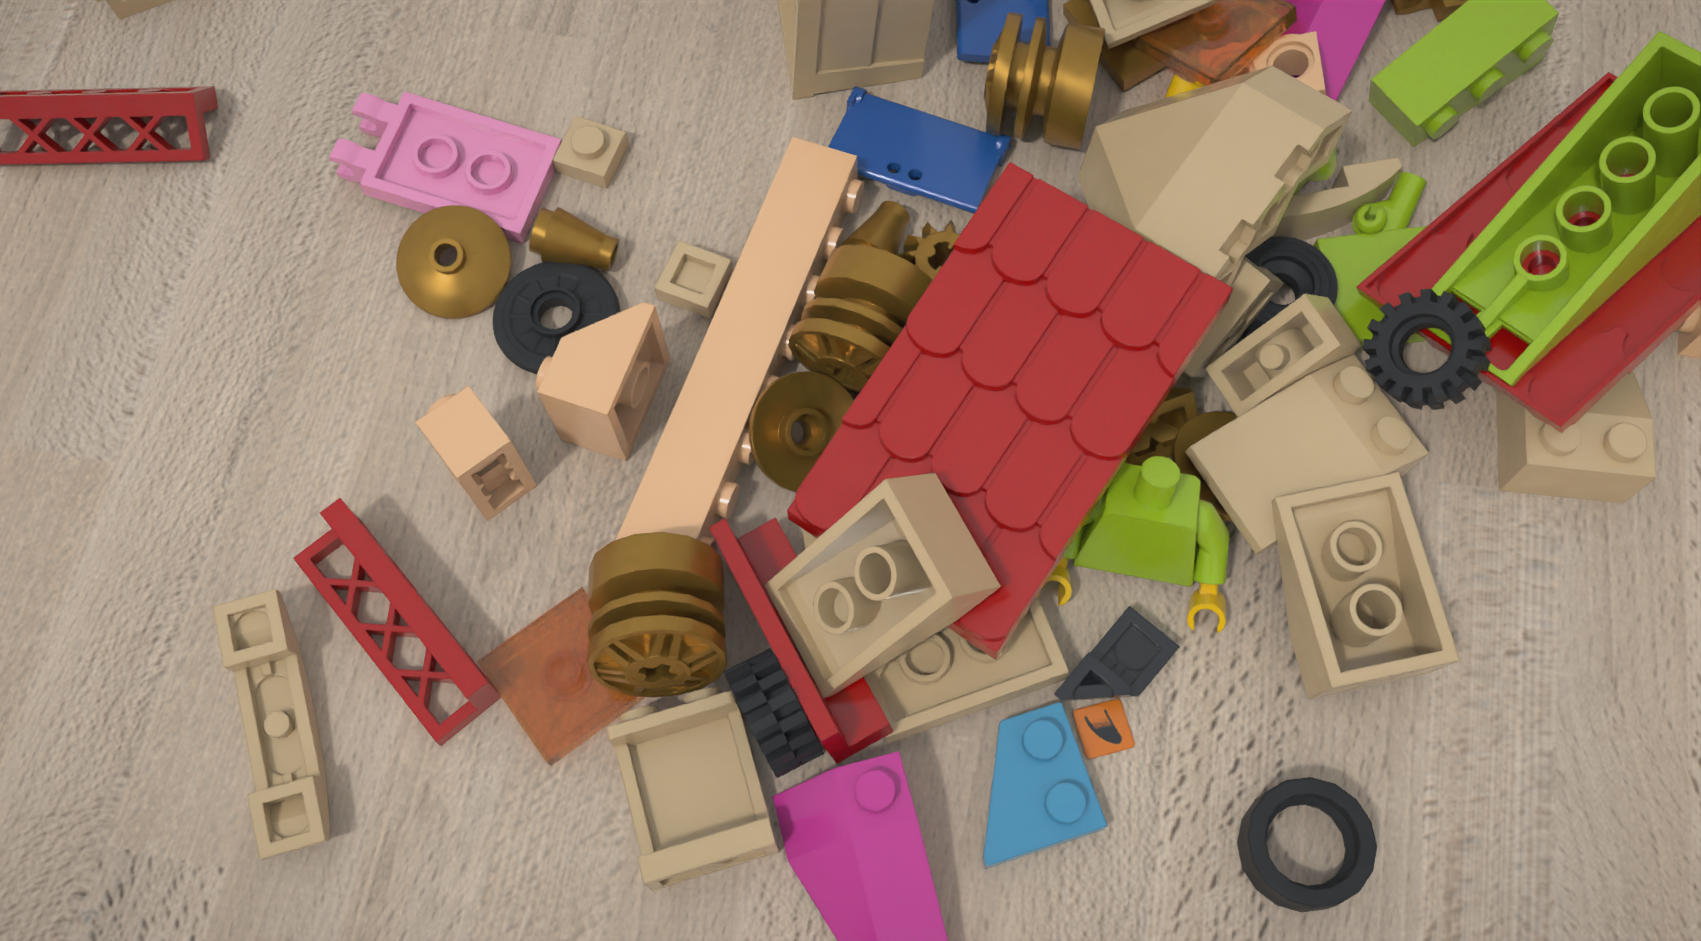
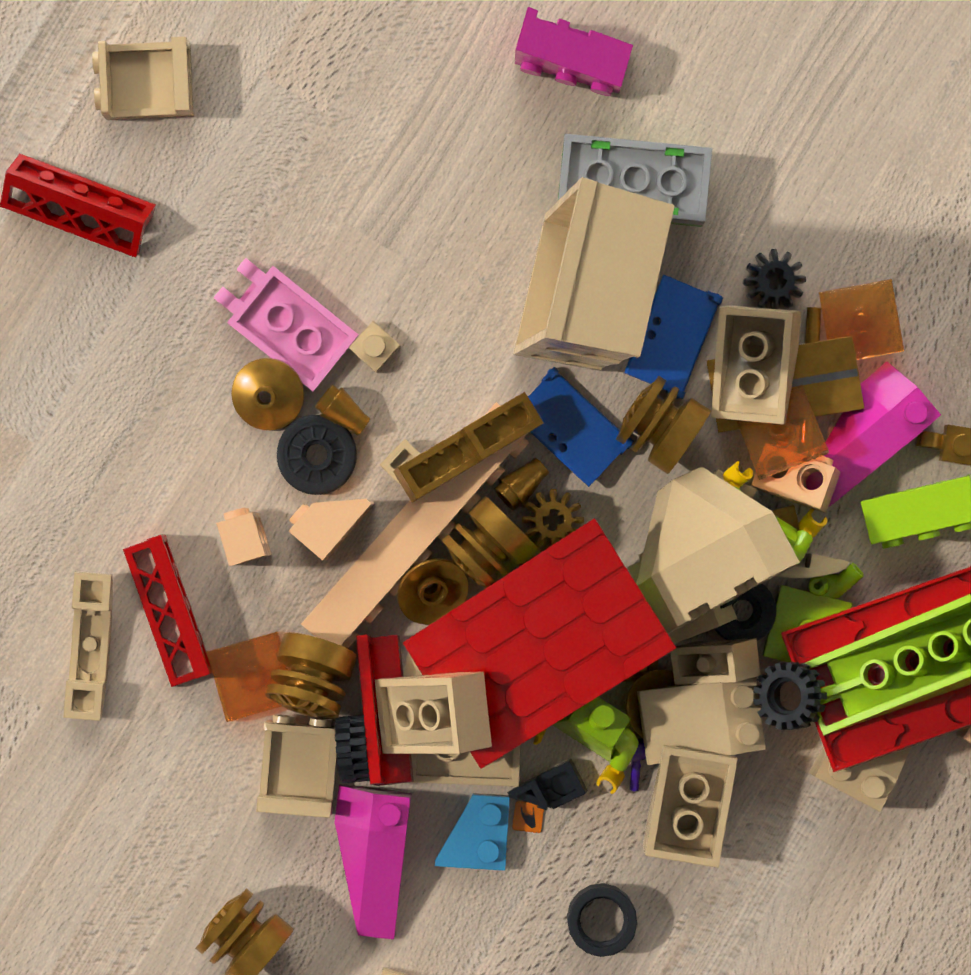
camera: 20 degrees right, 20 degrees up
(784, 190) = (468, 447): none -> pearl gold slope
(1239, 552) = (635, 764): none -> dark purple hand

